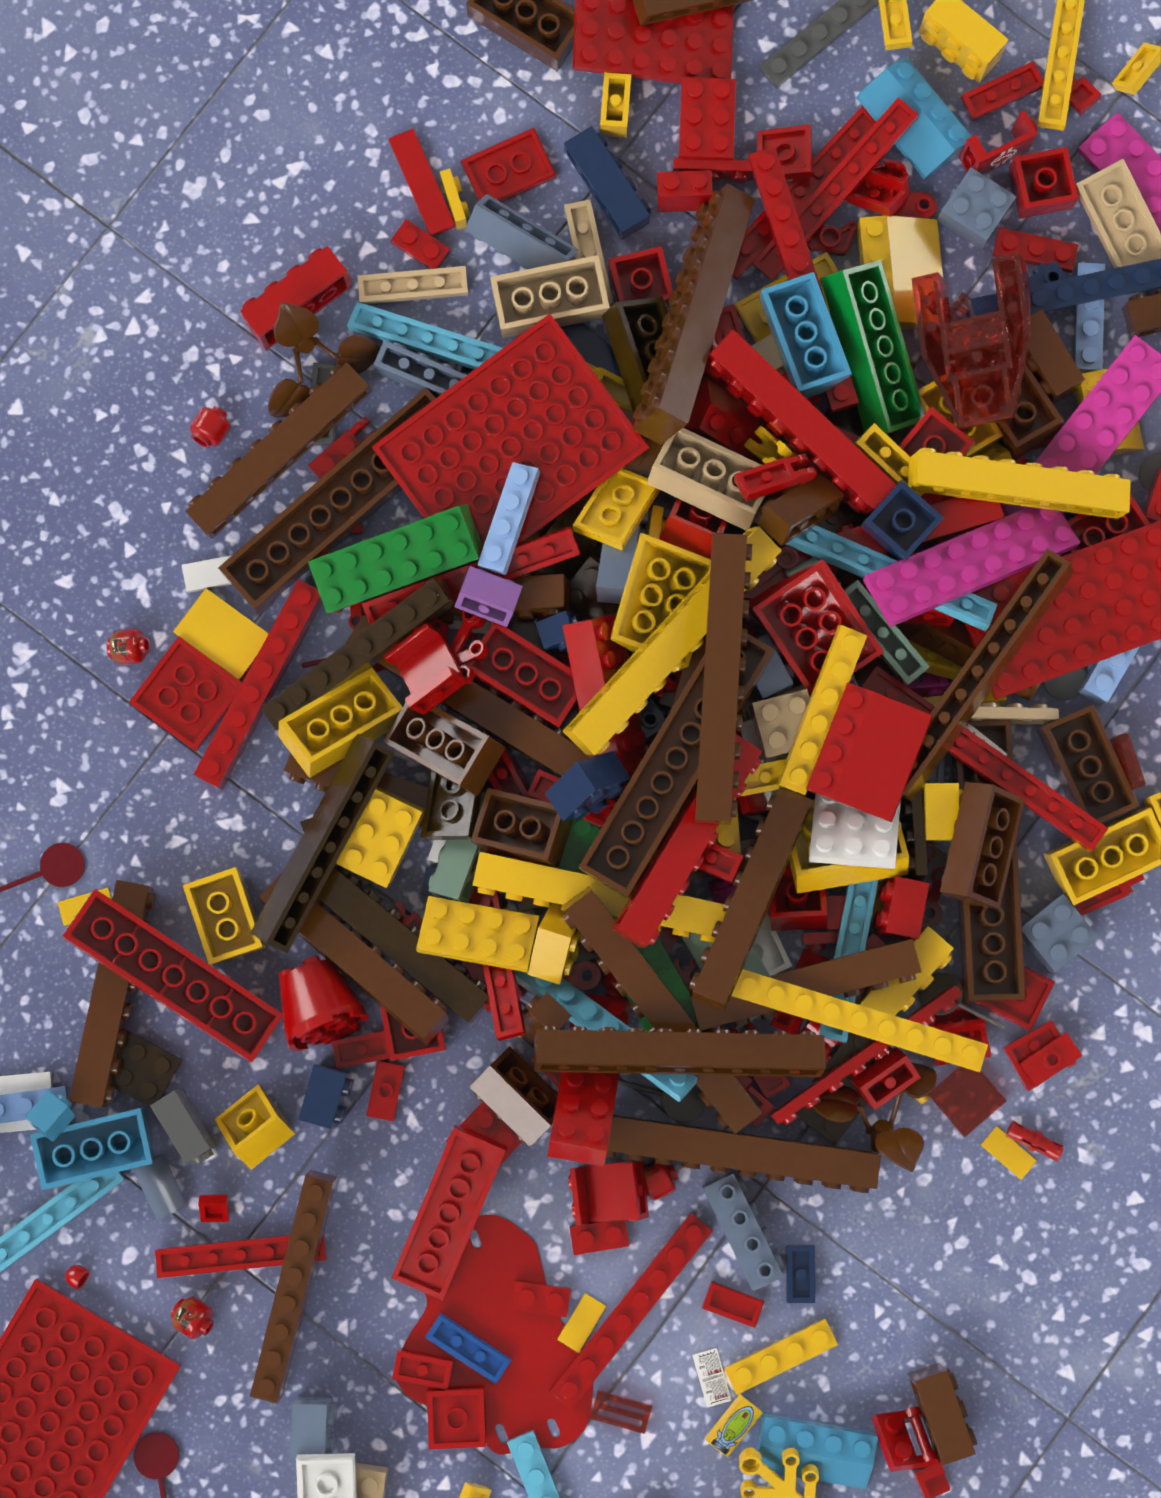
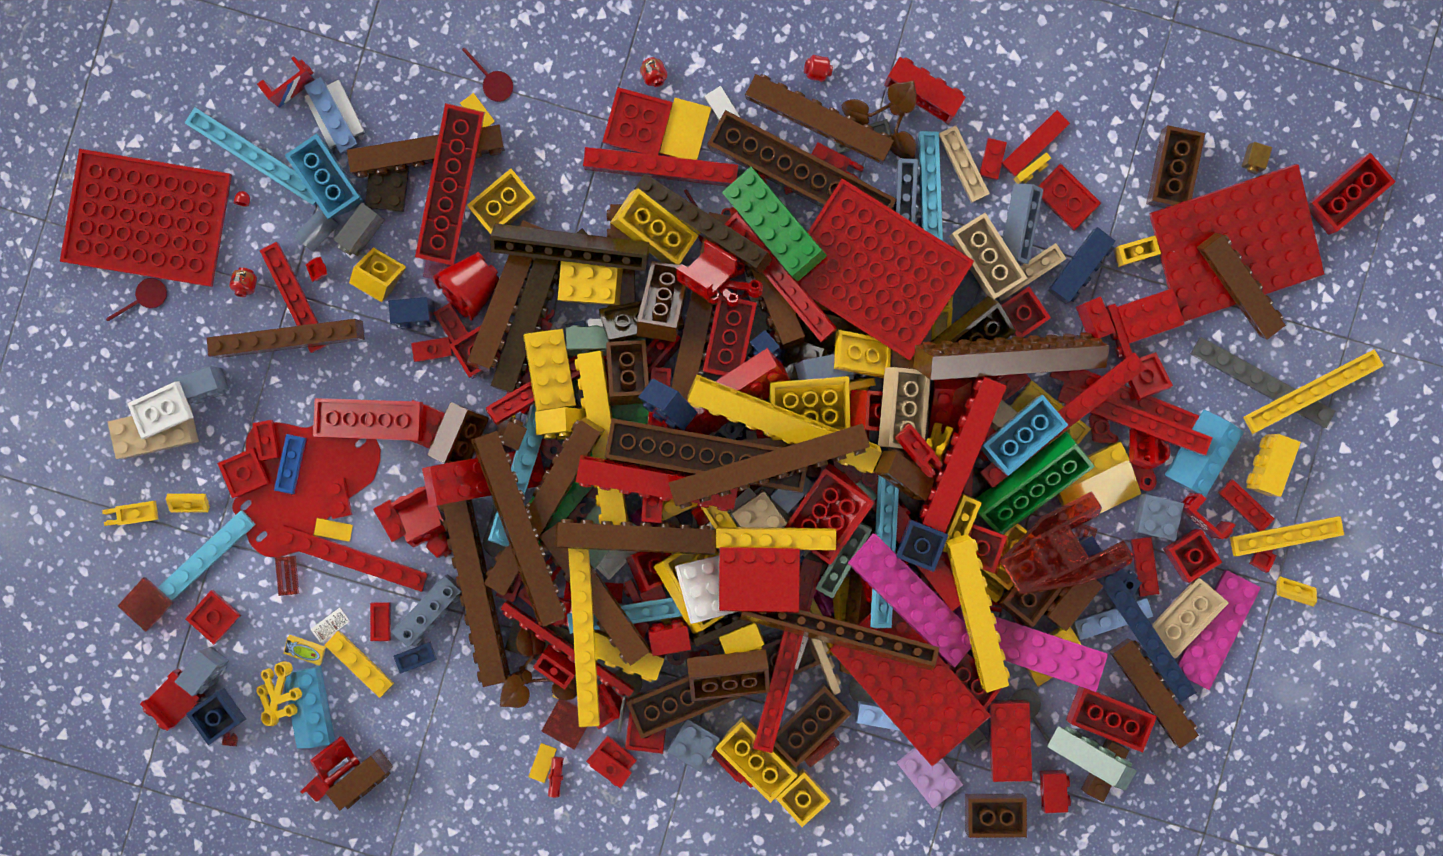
camera: 75 degrees right, 5 degrees up
(51, 1115) = (332, 142): dark azure brick -> none
(276, 1046) = (432, 268): none -> clear pink plate
(488, 596) = (770, 292): medium lavender brick -> none
(509, 518) = (827, 286): light blue plate -> none

